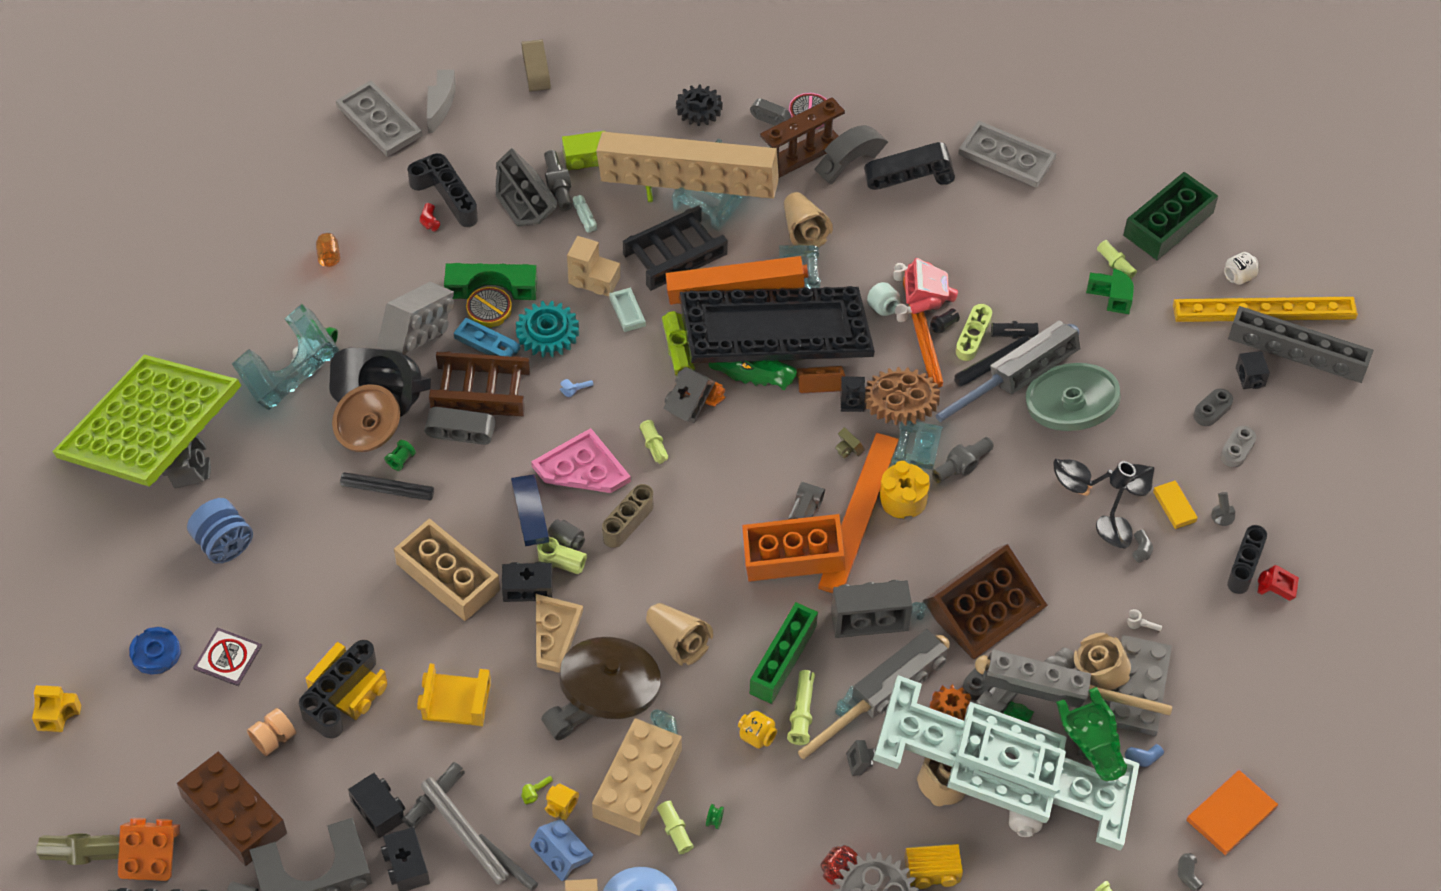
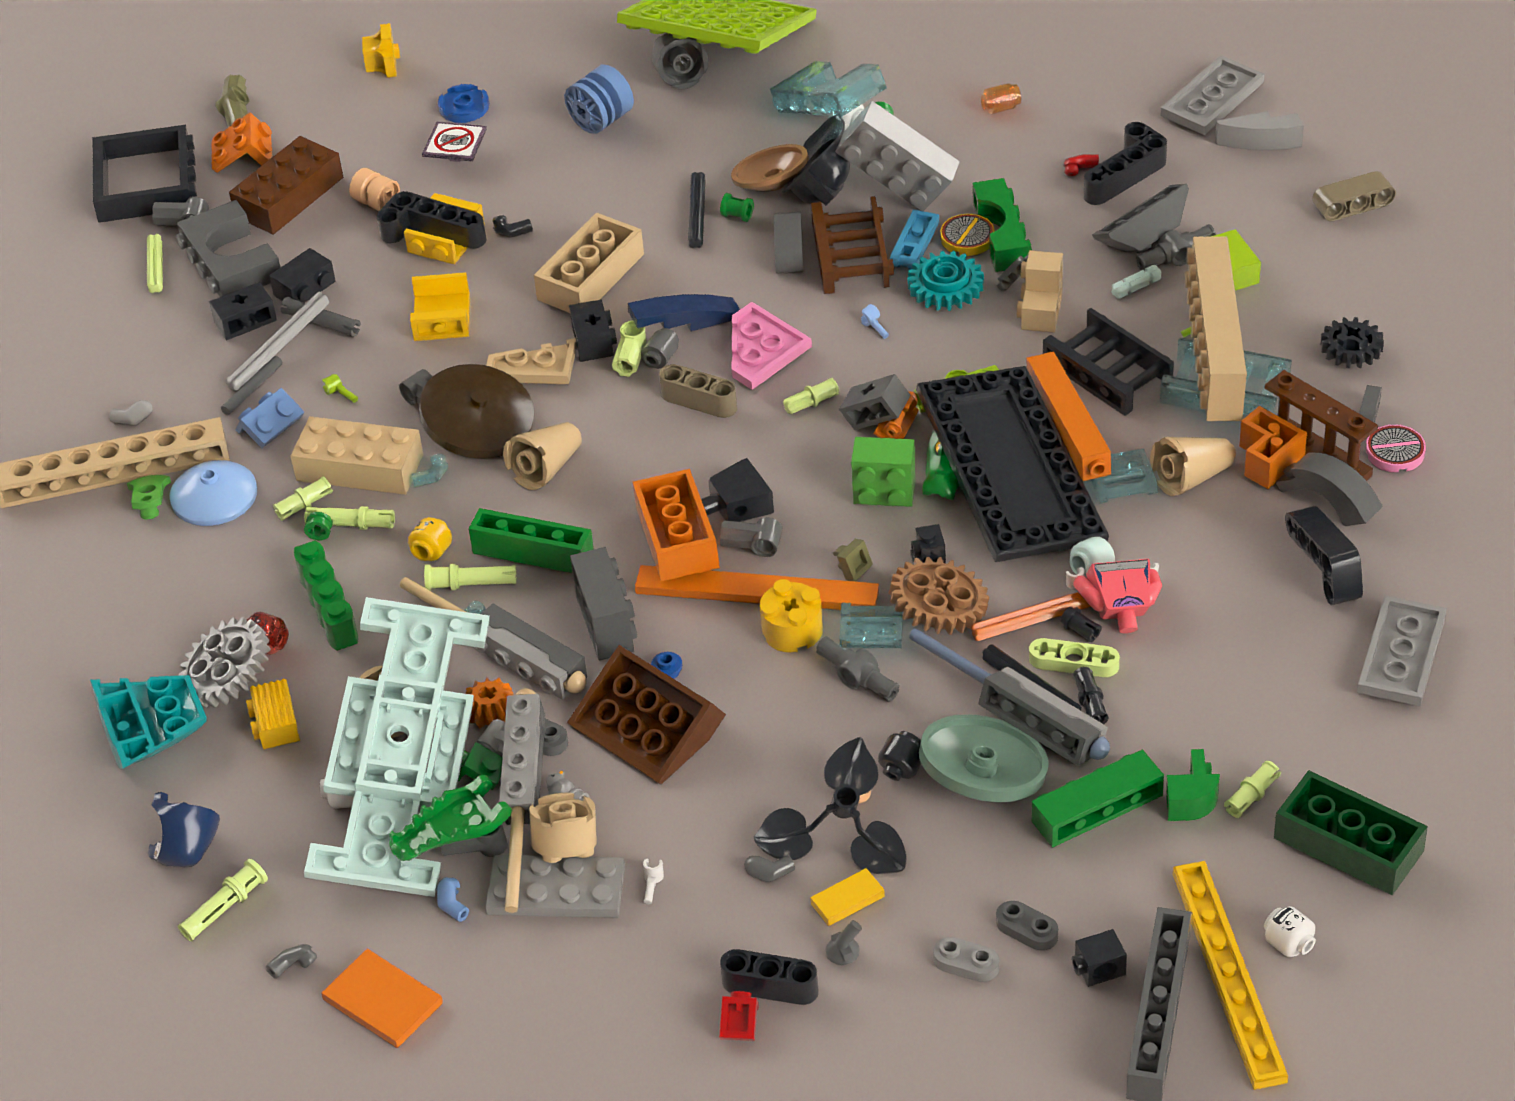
camera: 85 degrees right, 10 degrees down
(361, 629) = (511, 229): none -> black arm
(549, 282) = (1011, 274): none -> dark grey gear
(561, 801) = (323, 403): yellow plate -> none
(627, 309) = (1003, 343): light aqua tile -> none
(712, 781) = (359, 517): none -> yellowish green pin
(755, 502) = (739, 493): none -> black torso
(771, 402) = (883, 471): none -> bright green brick
(804, 169) = (1269, 446): none -> orange brick
(811, 814) = (326, 595): none -> green brick
(819, 379) = (954, 524): dark orange slope -> none
(926, 587) = (669, 663): none -> blue plate
(1055, 445) = (900, 756): none -> black head
(1113, 342) = (1097, 798): none -> green brick

